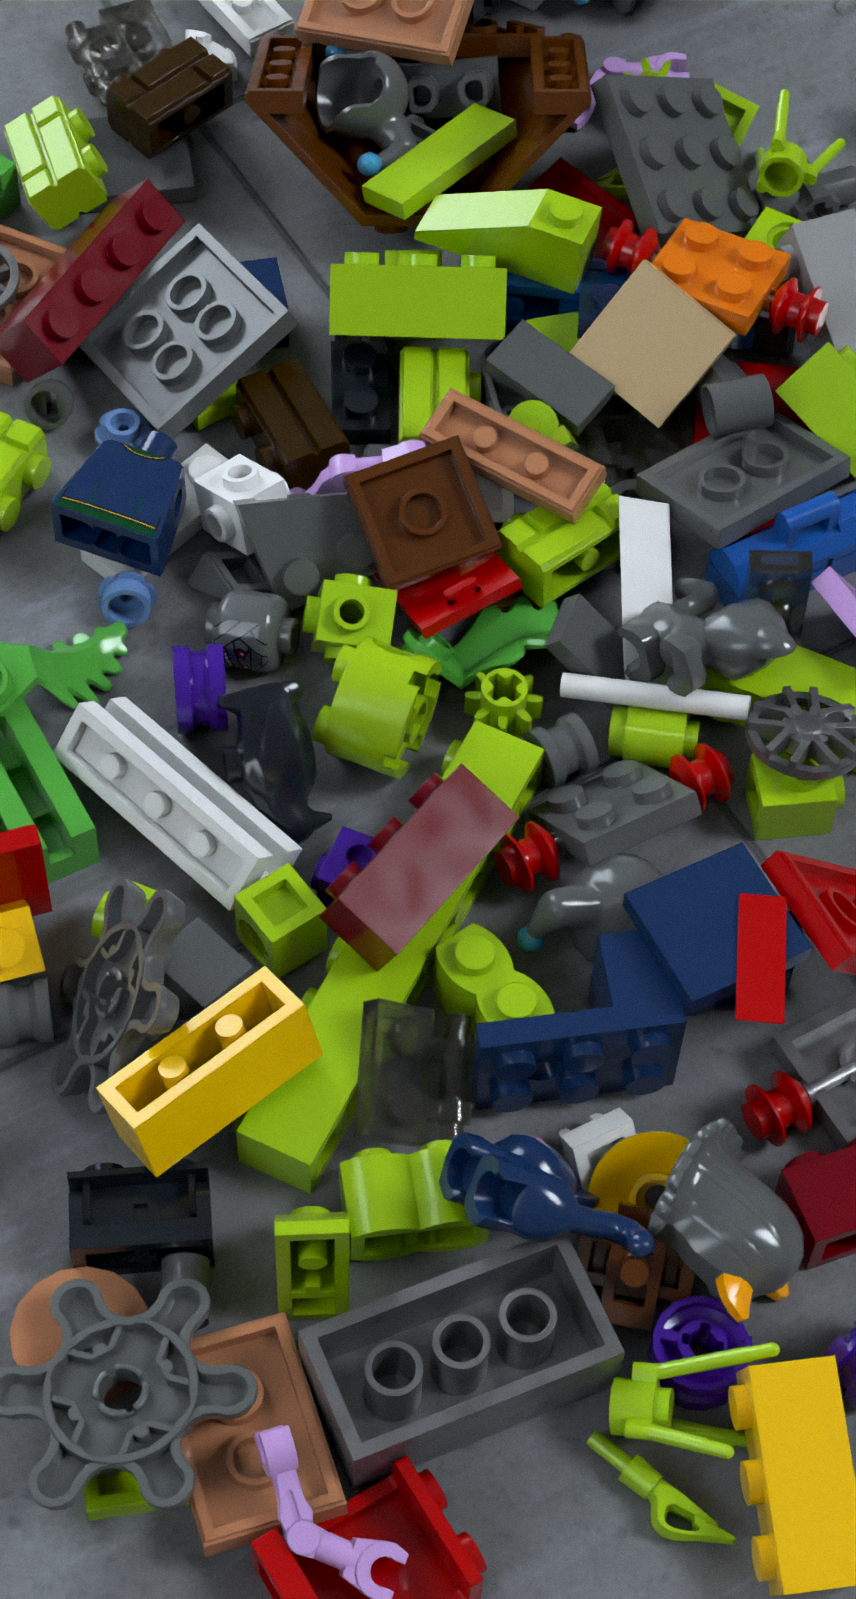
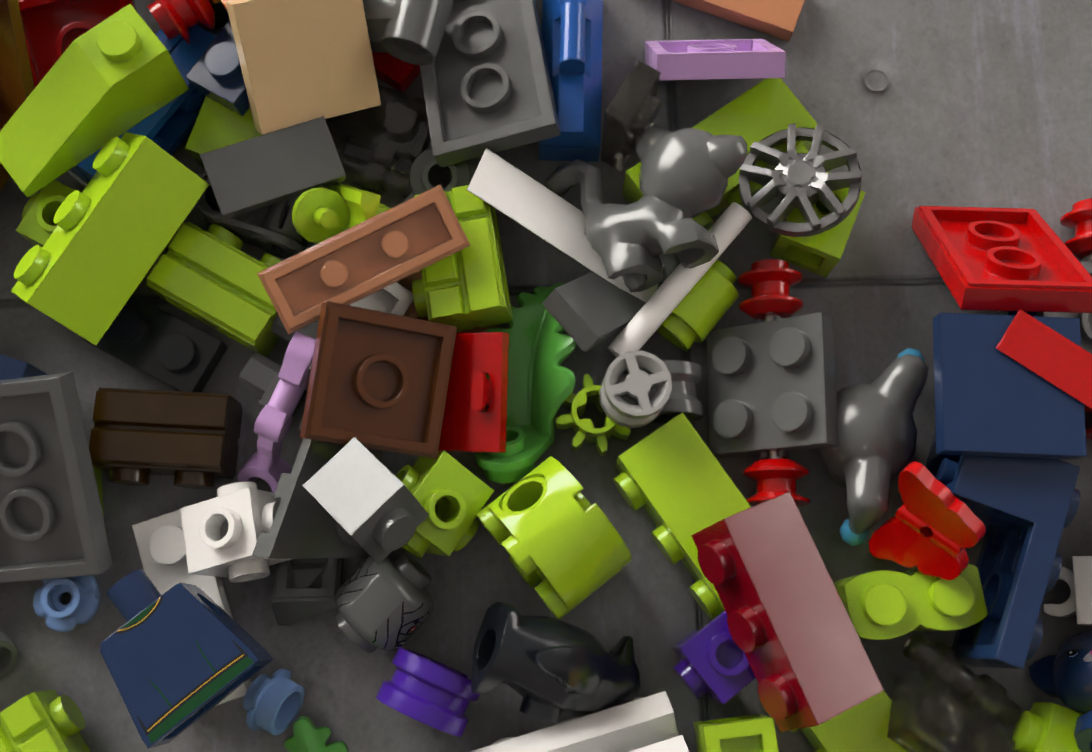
camera: 60 degrees left, 20 degrees up
(321, 542) = (367, 500): none -> brick
(532, 677) = (641, 377): none -> light grey wheel
(565, 942) = (928, 527): none -> red animal

